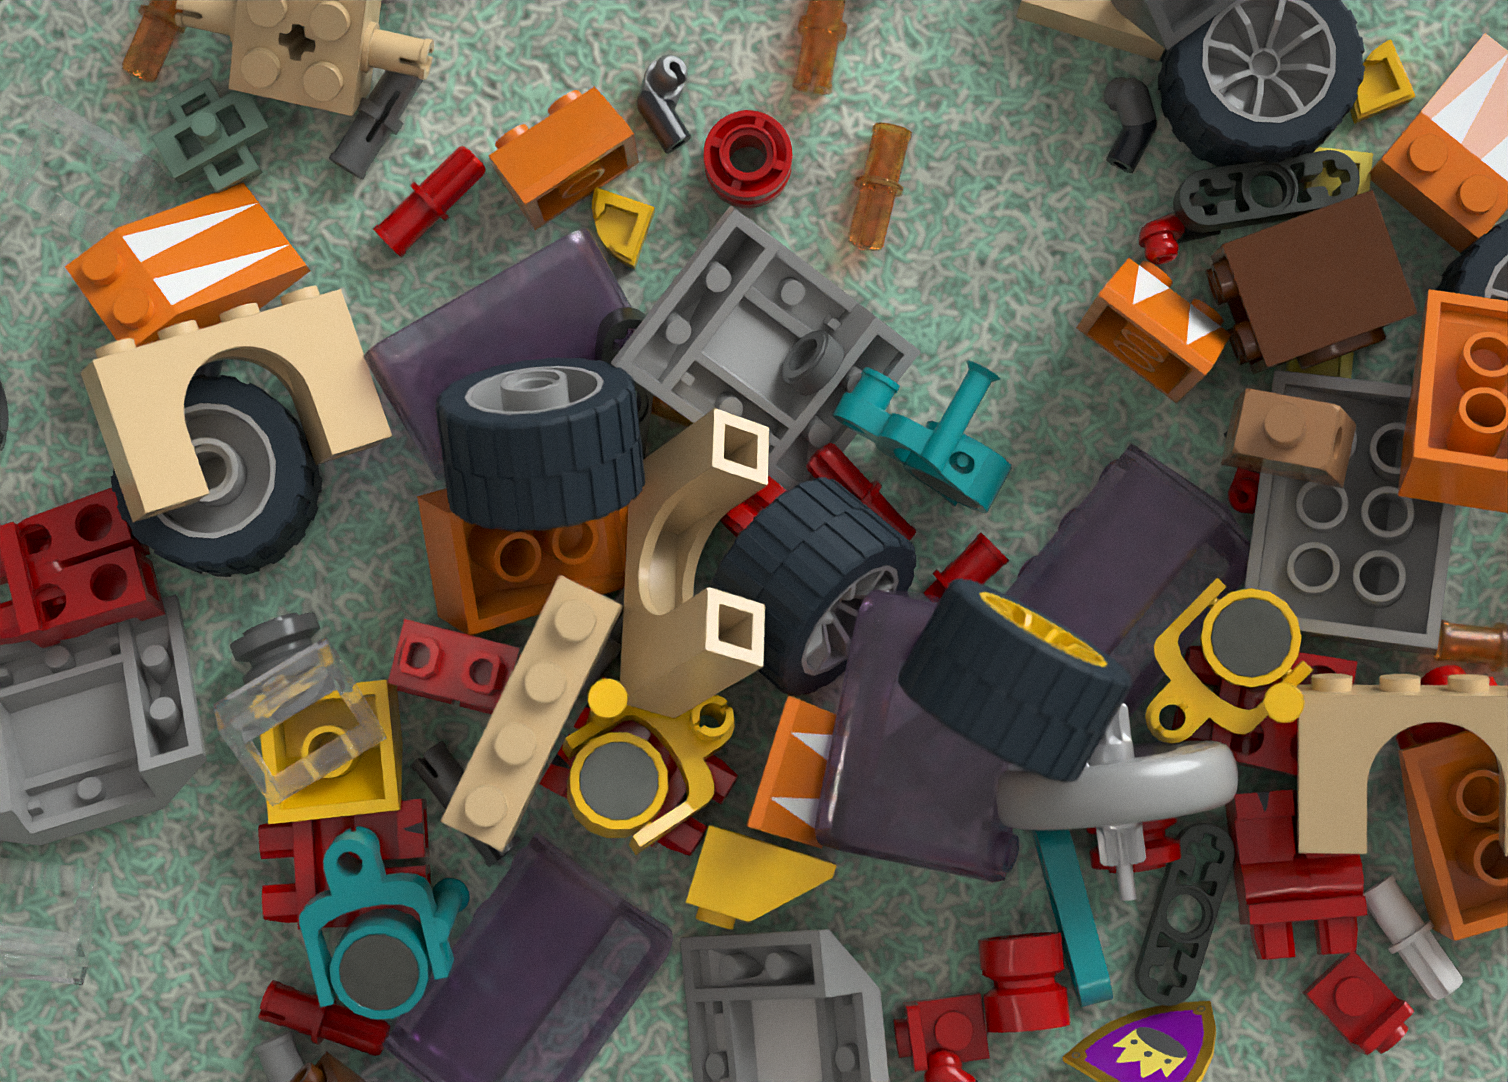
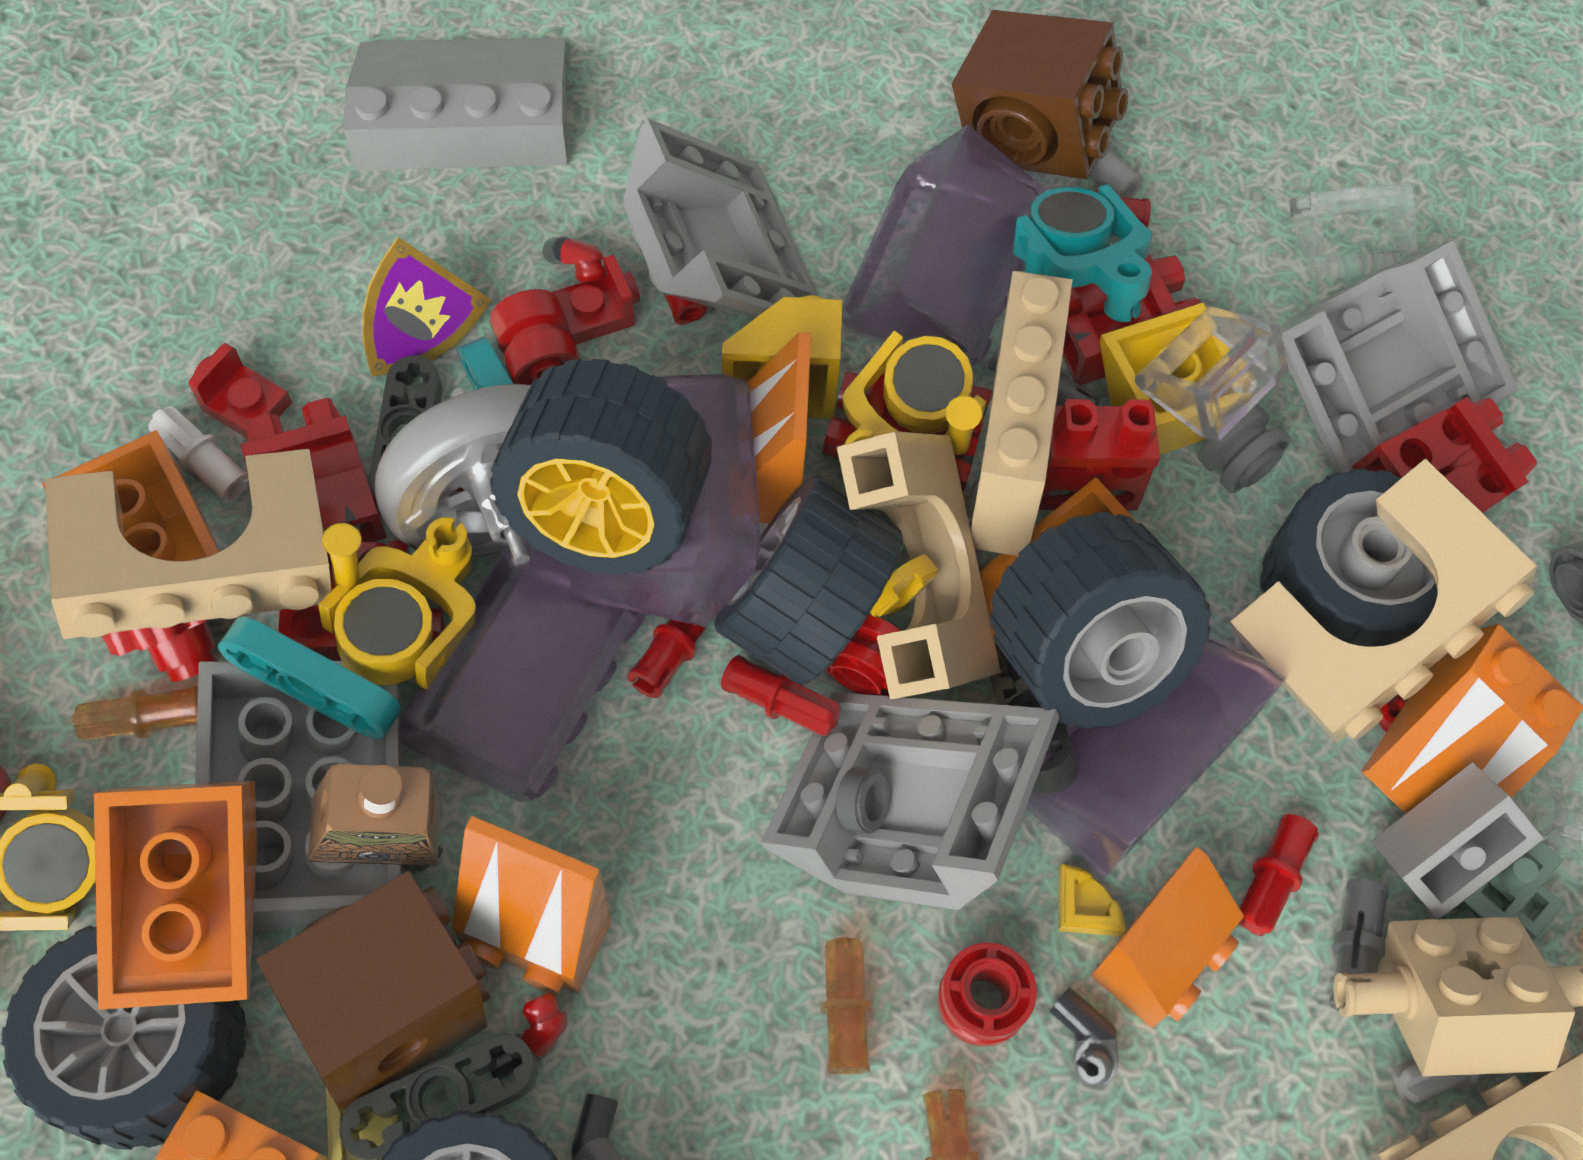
camera: 160 degrees right, 20 degrees down
(256, 170) = (1457, 840): none -> light grey brick
(699, 570) = (905, 585): none -> yellow tile
(933, 454) = (708, 734): teal piece -> none
(1331, 600) = (309, 678): none -> teal beam

